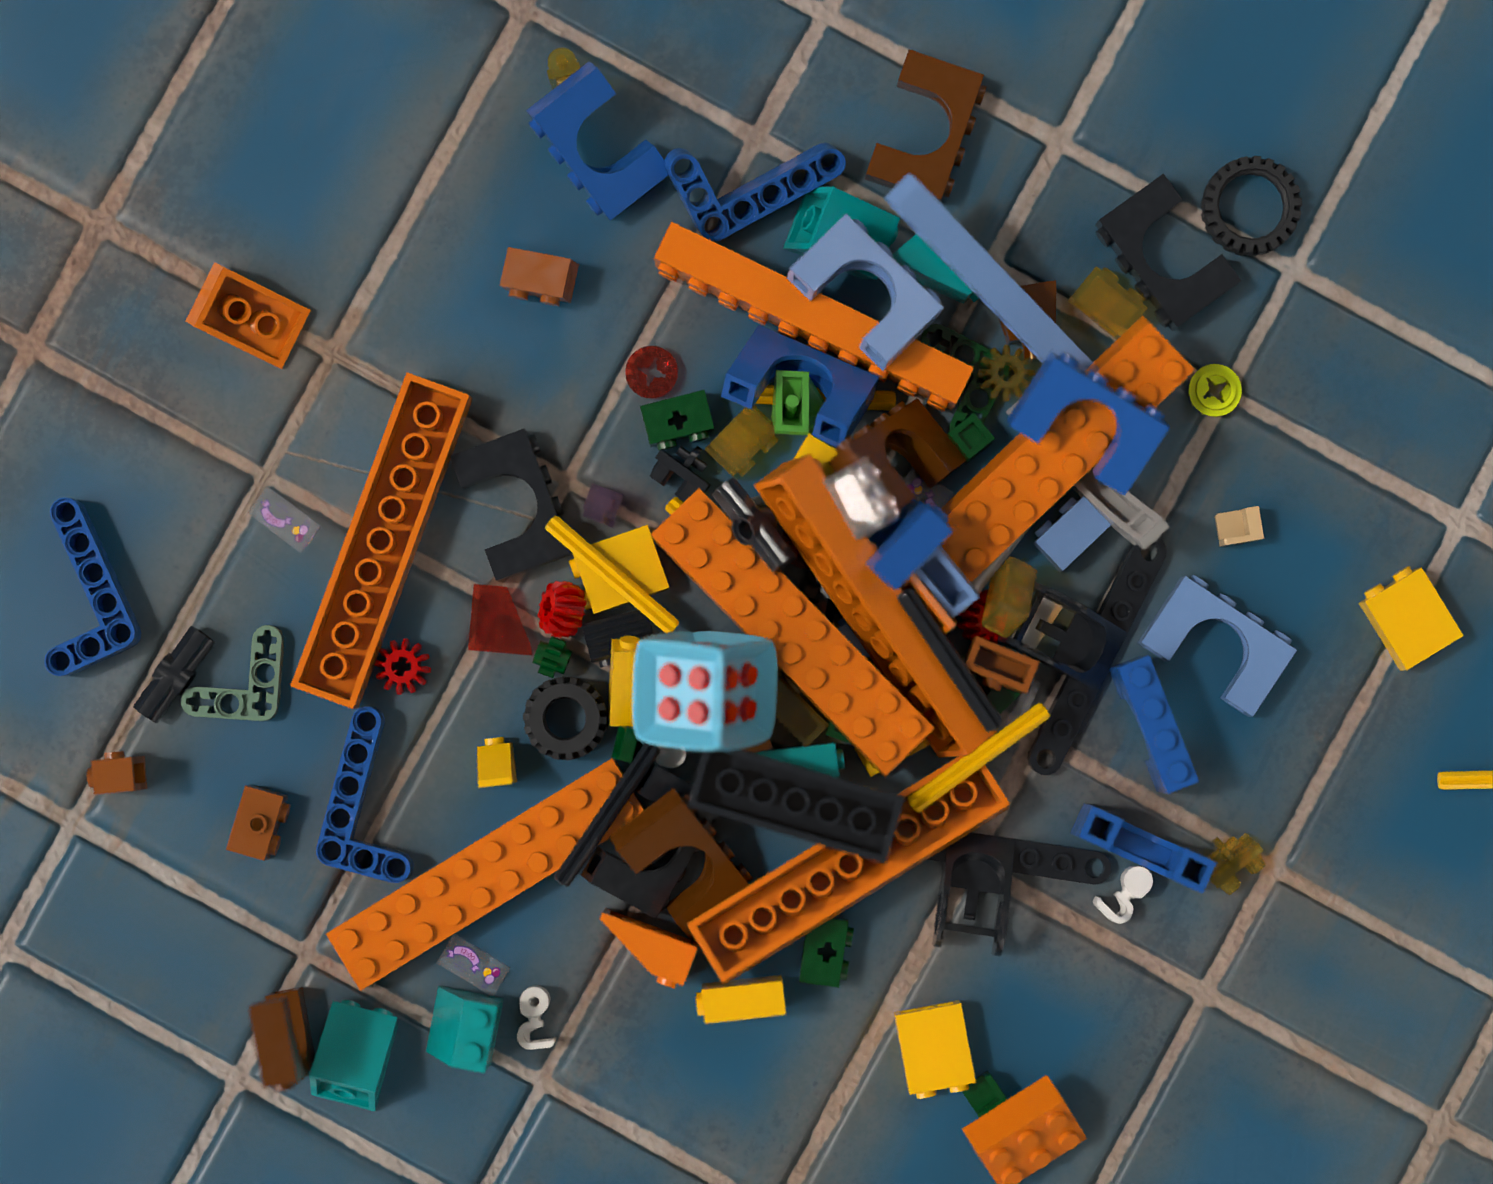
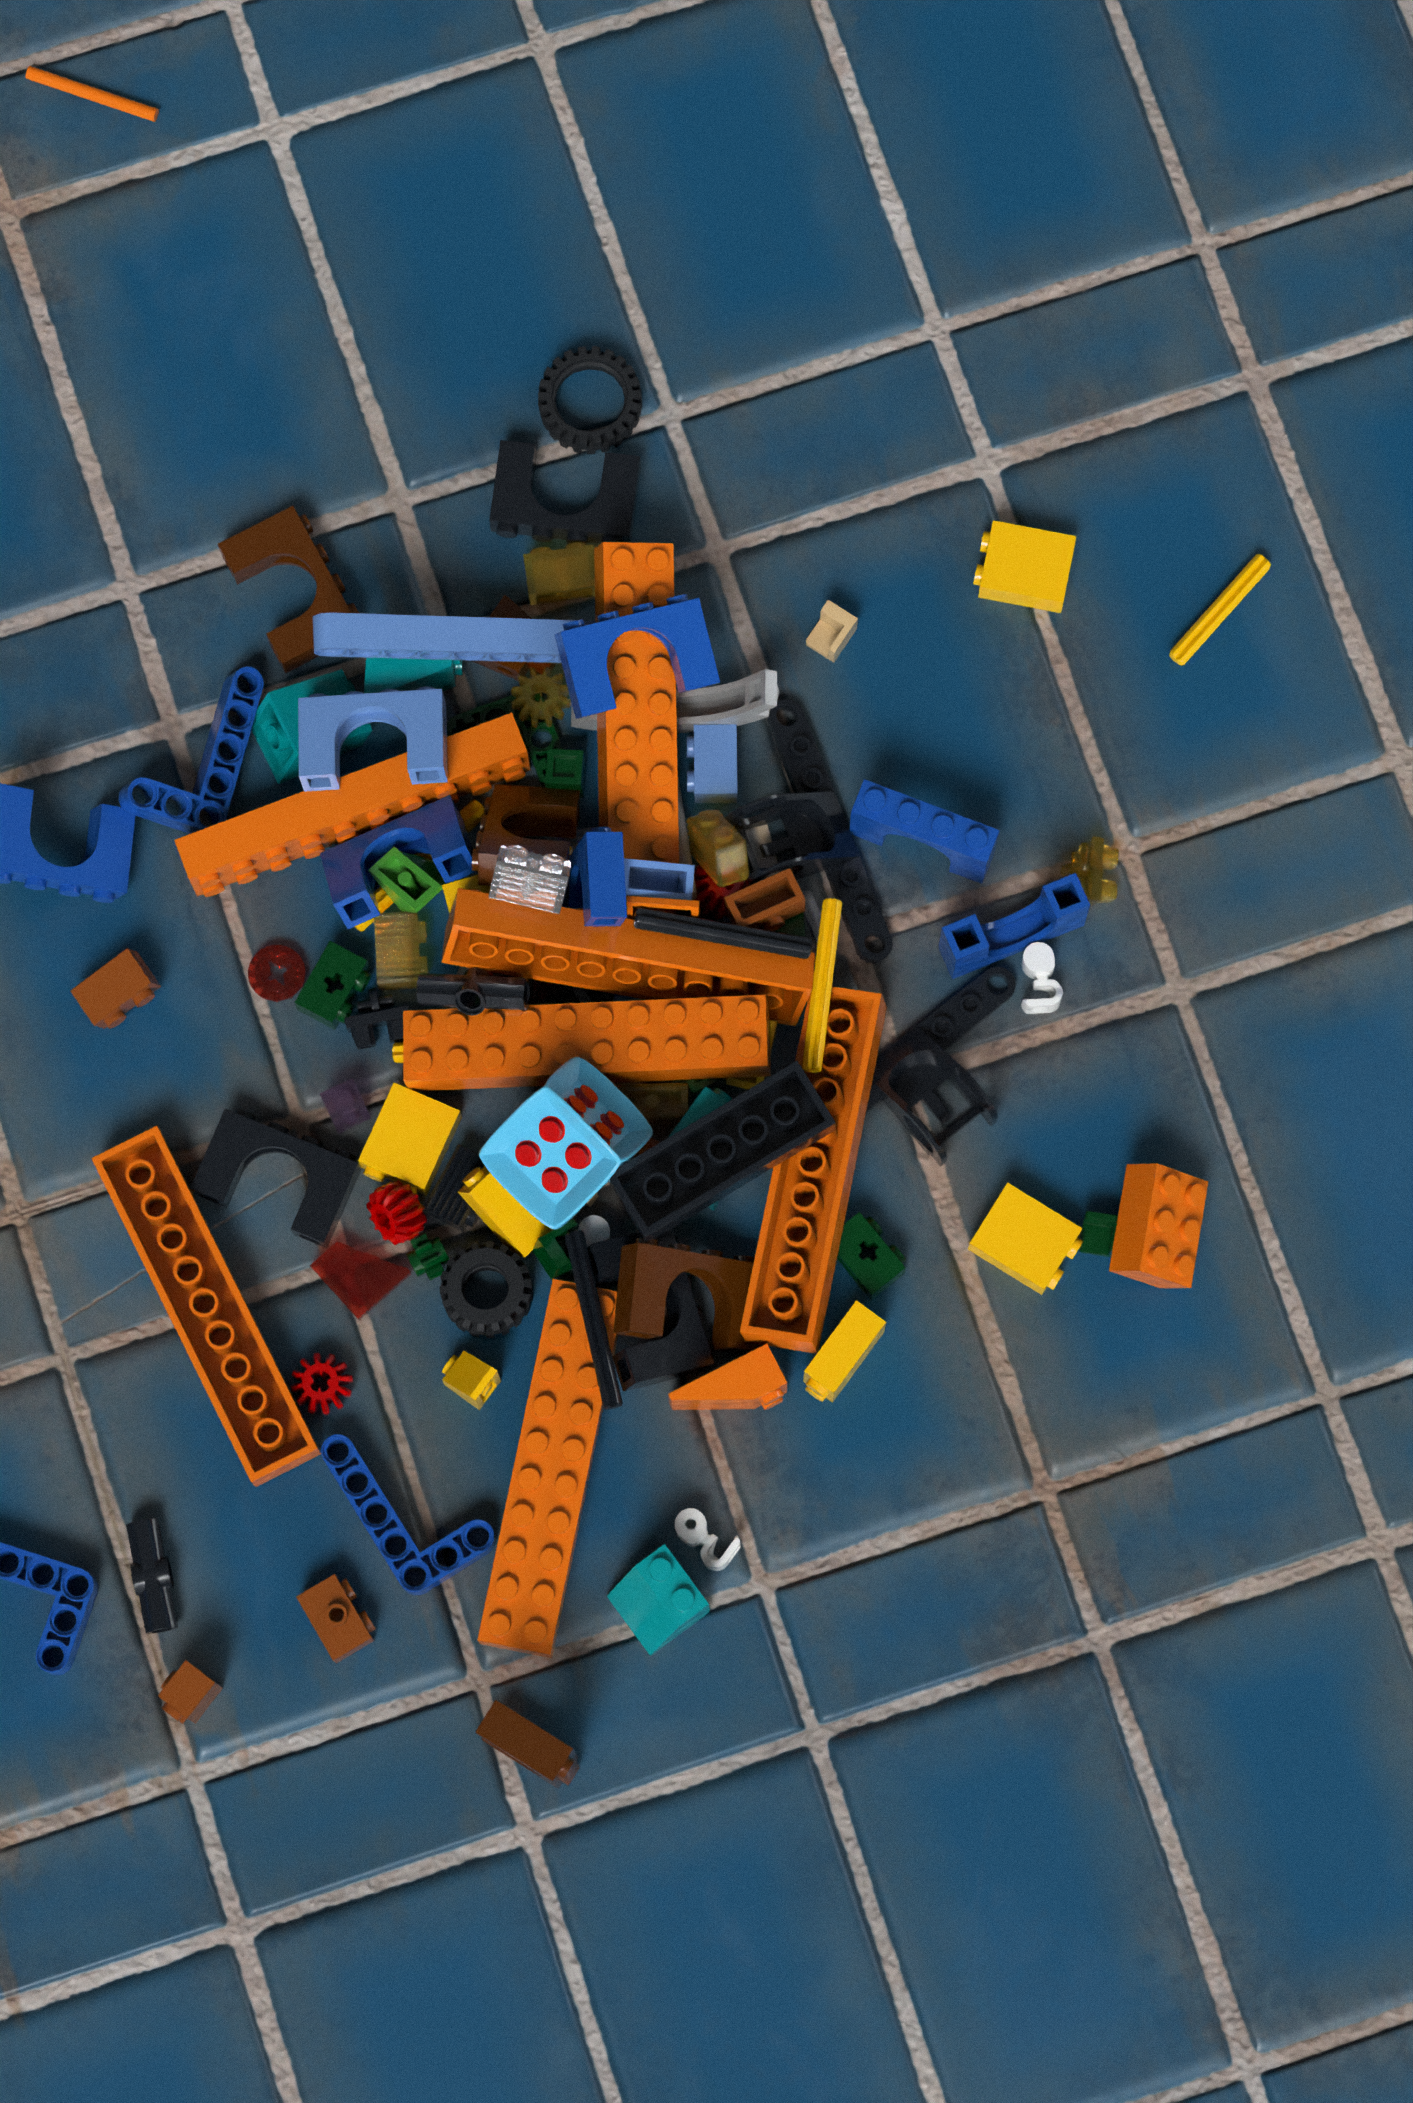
camera: 45 degrees left, 10 degrees down
(248, 697) = (226, 1535): sand green beam -> none
(284, 519) = (113, 1373): clear tile -> none
(353, 1054) = (598, 1714): teal slope -> none
(473, 965) = (615, 1550): clear tile -> none
(612, 574) = (404, 1144): yellow axle -> none
(1217, 375) = (696, 544): neon yellow gear -> none
(1263, 652) = (946, 699): medium blue arch -> none

